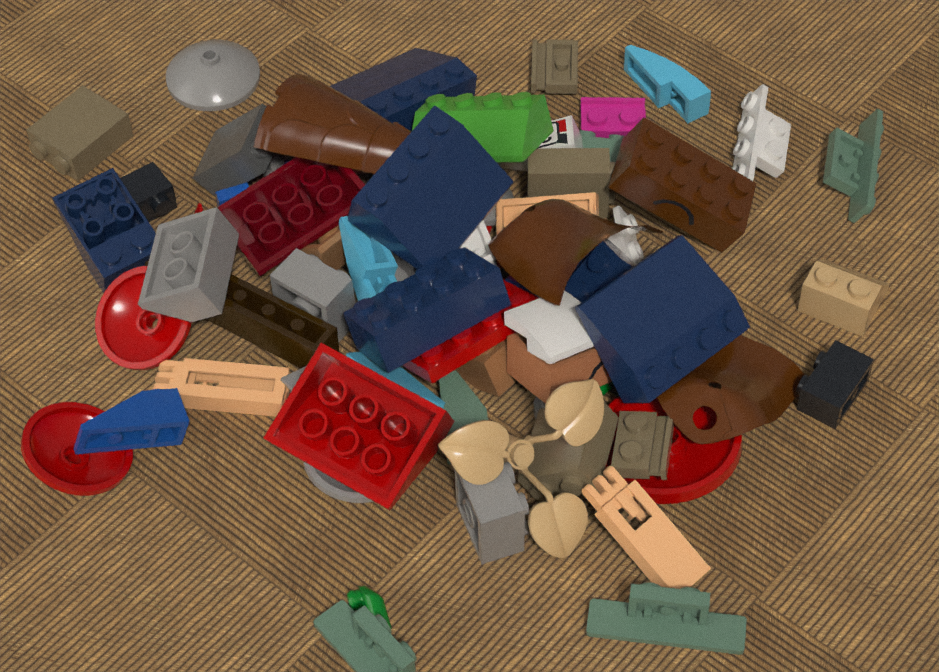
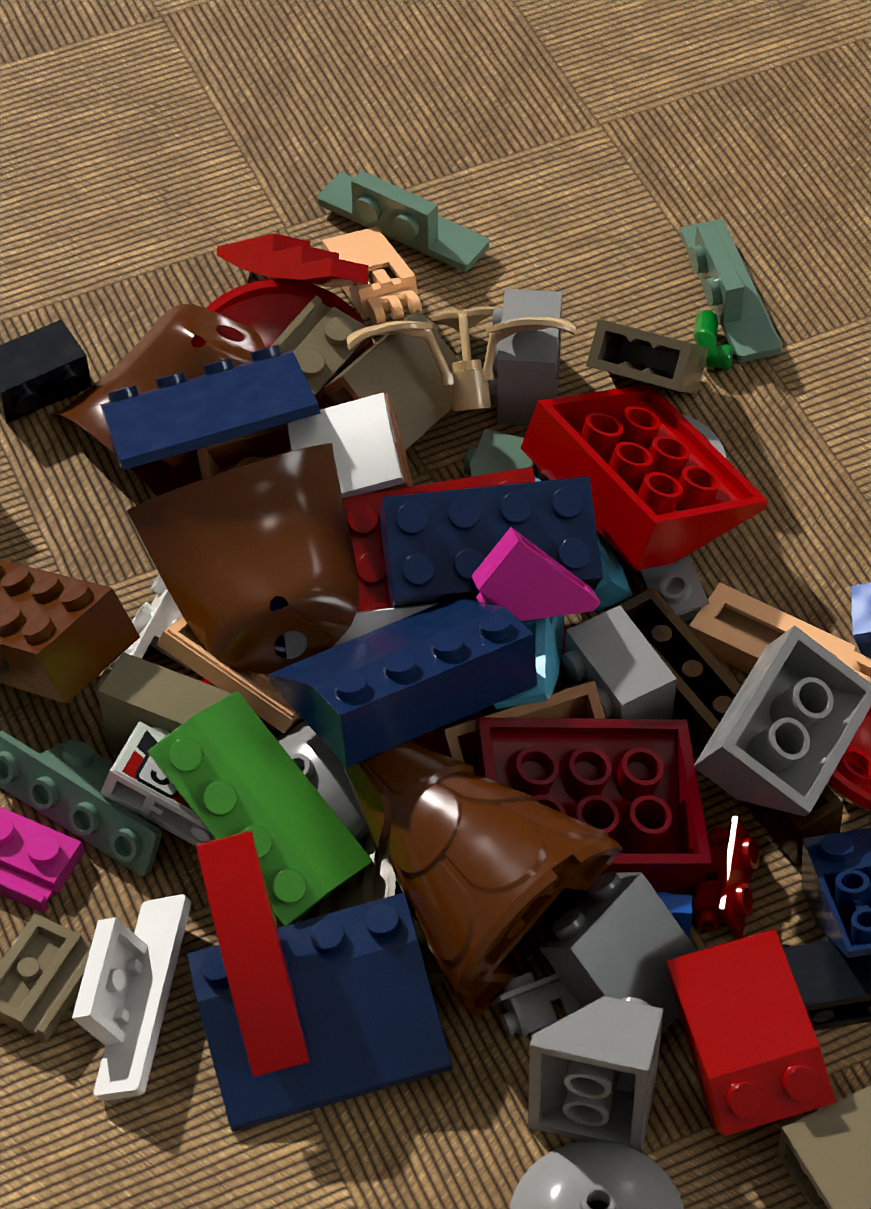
camera: 155 degrees left, 0 degrees up
(155, 136) = (749, 1033): none -> red slope
(229, 79) = (596, 1072): none -> light grey slope
(376, 270) = (530, 581): none -> dark pink slope
(399, 532) = (647, 357): none -> dark tan brick
(436, 59) = (252, 953): none -> red slope
(501, 65) = (128, 992): none -> white bracket
(705, 502) = (293, 260): none -> red slope

